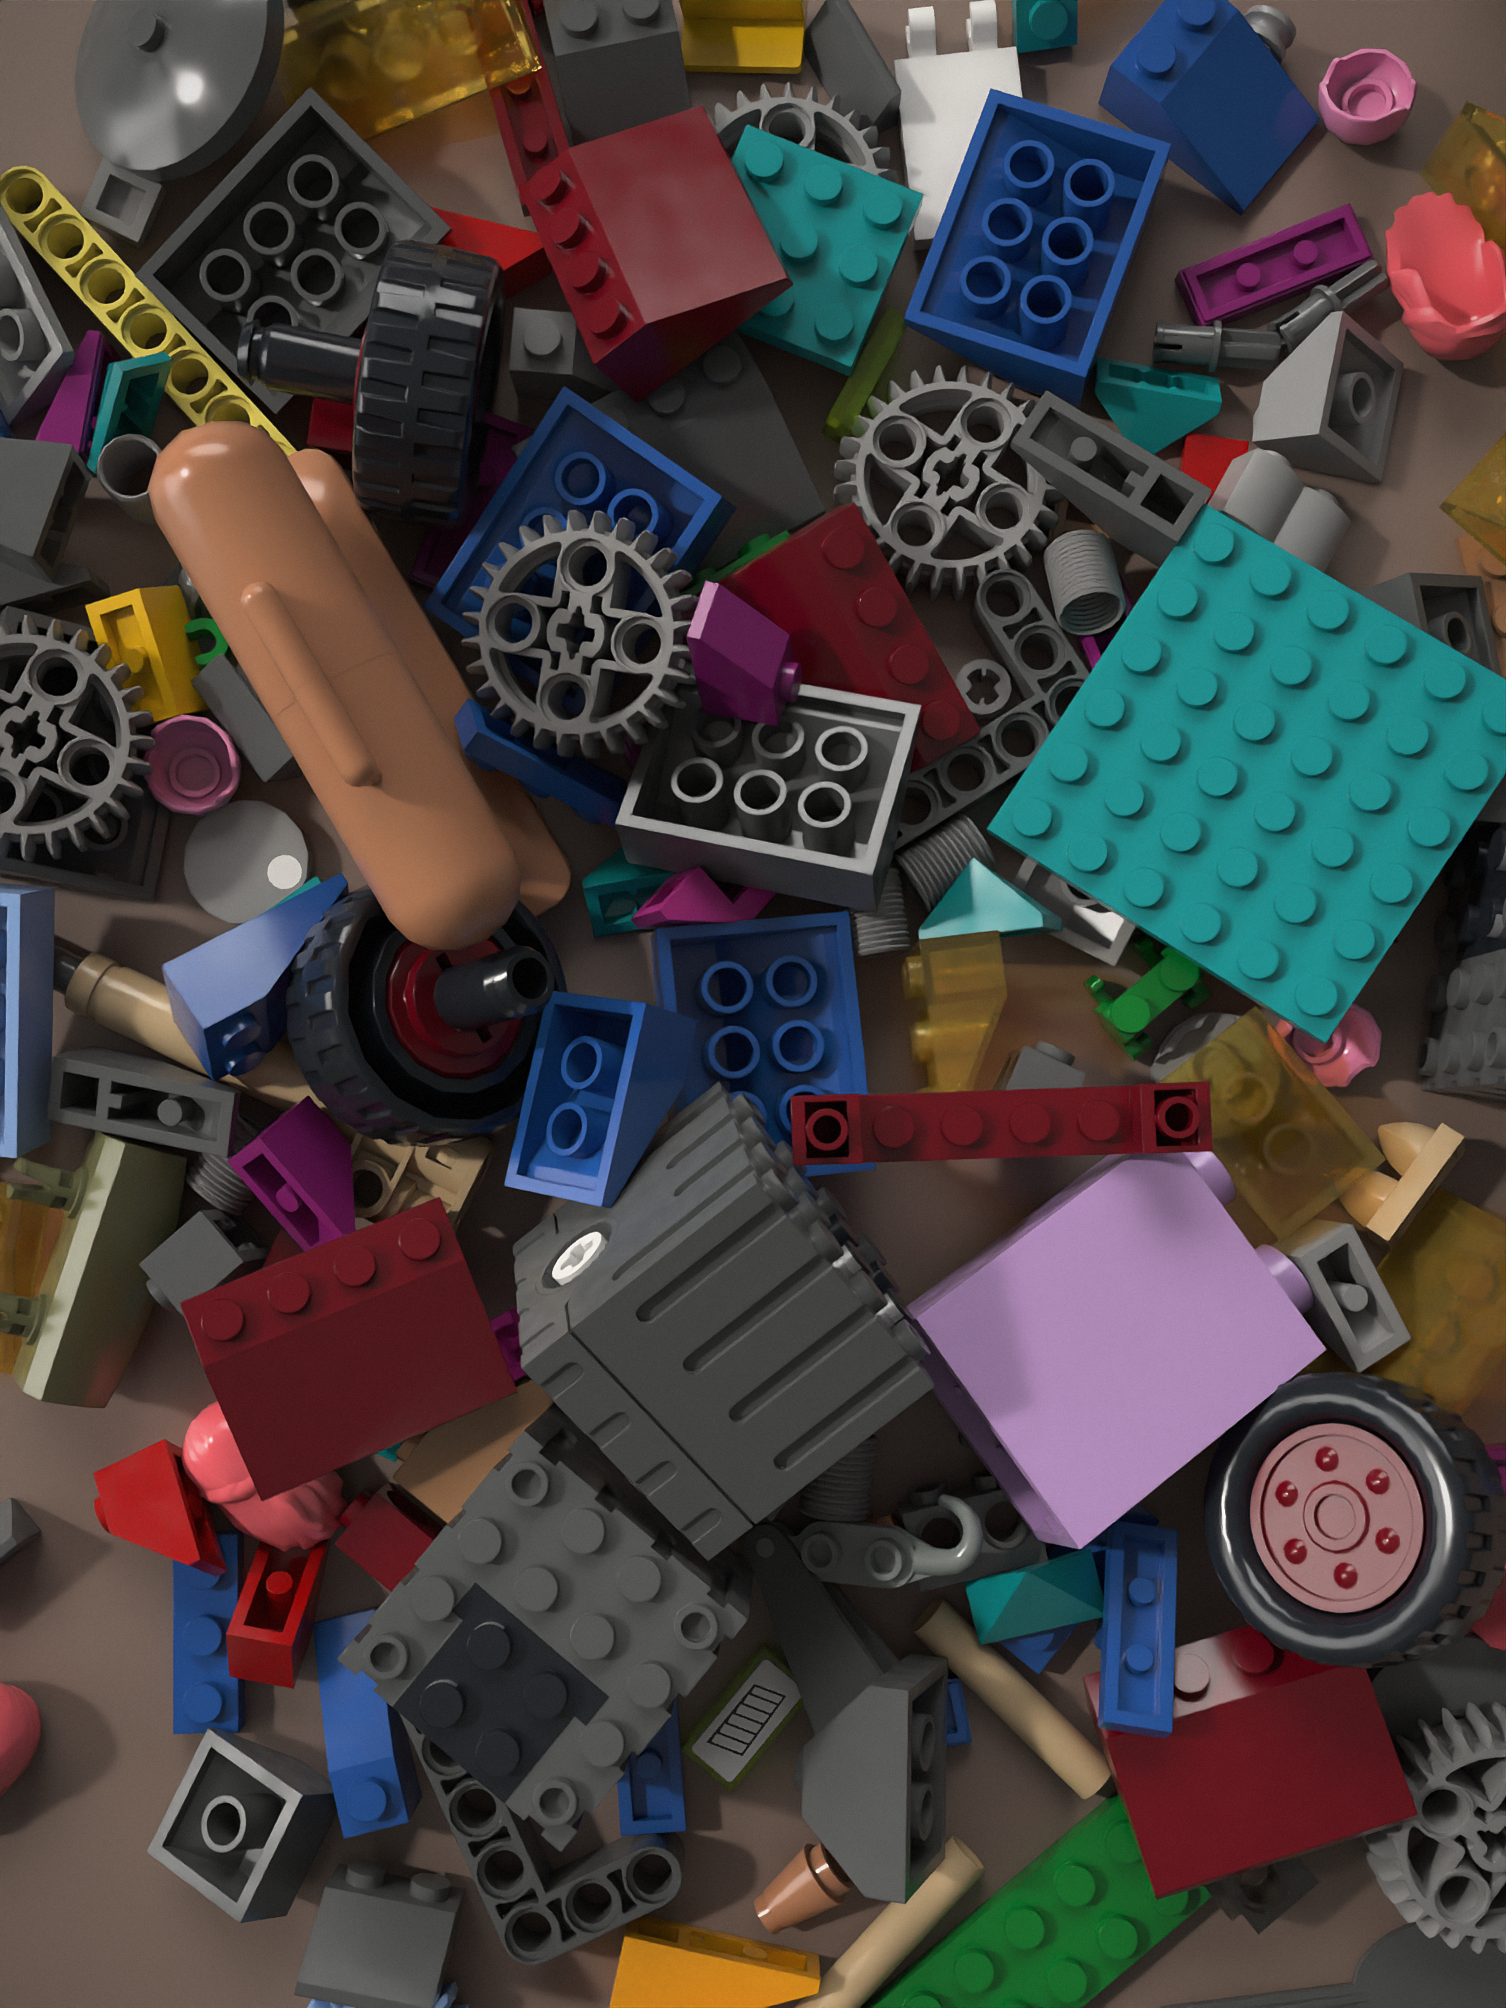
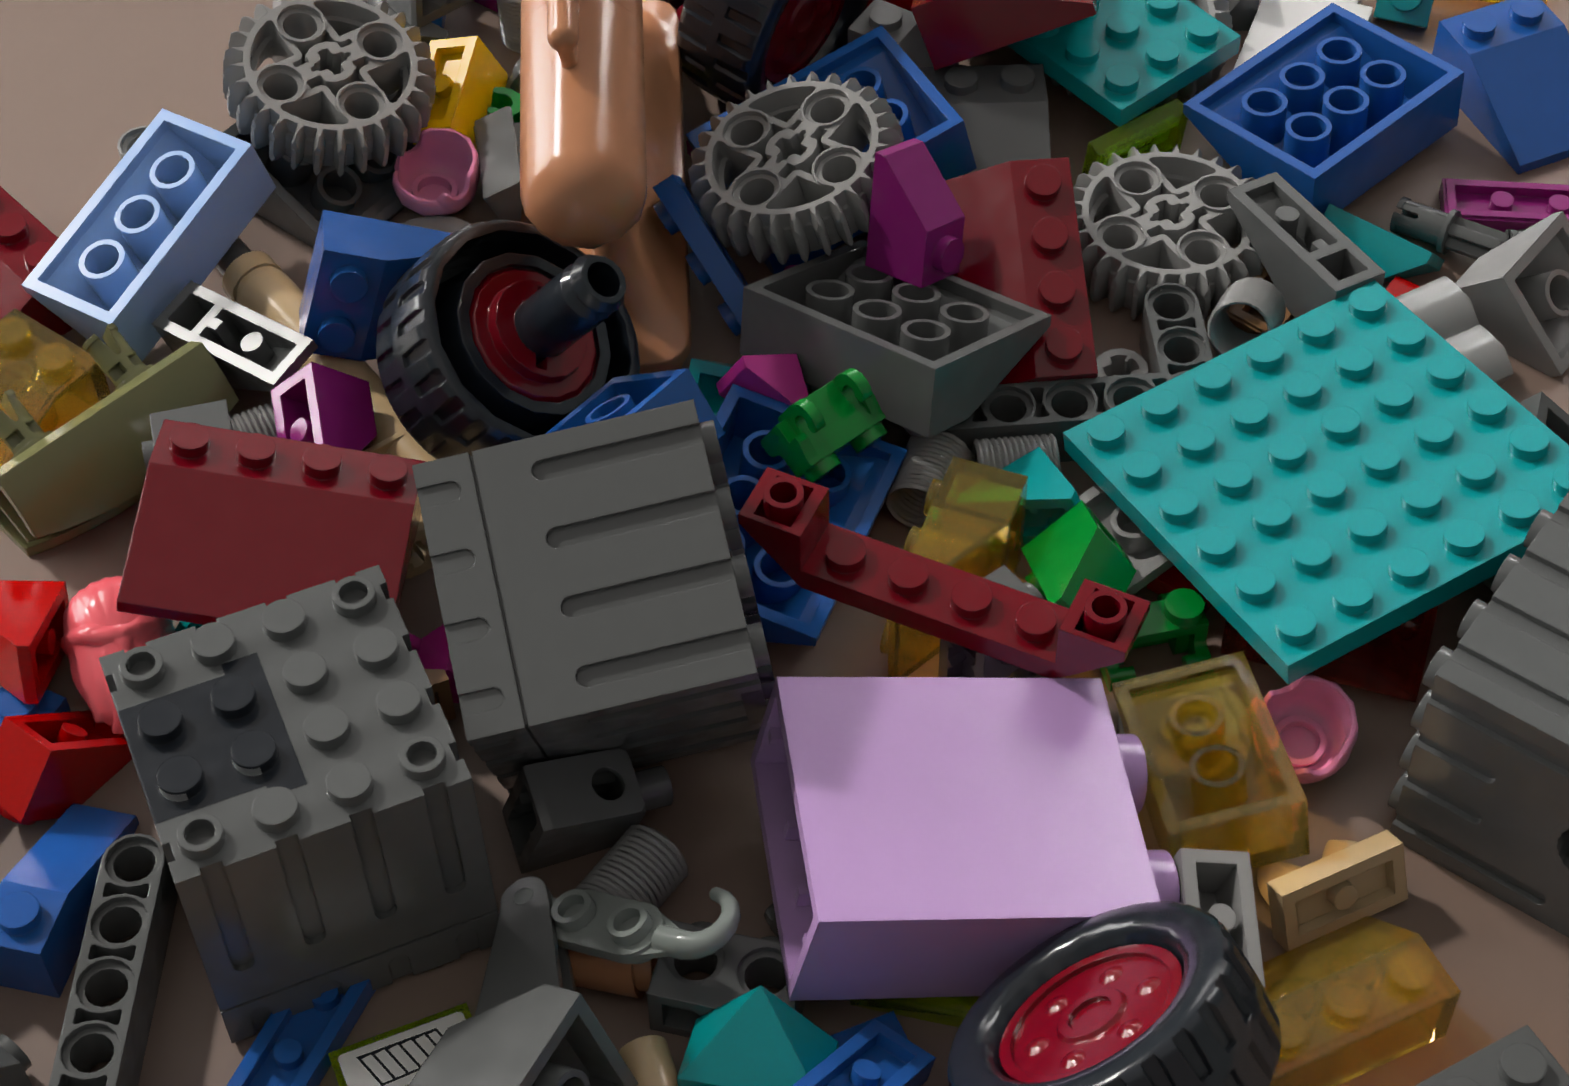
camera: 25 degrees right, 35 degrees down
(781, 951) = (825, 424): none -> green piece
(1080, 992) = (1076, 550): none -> green slope

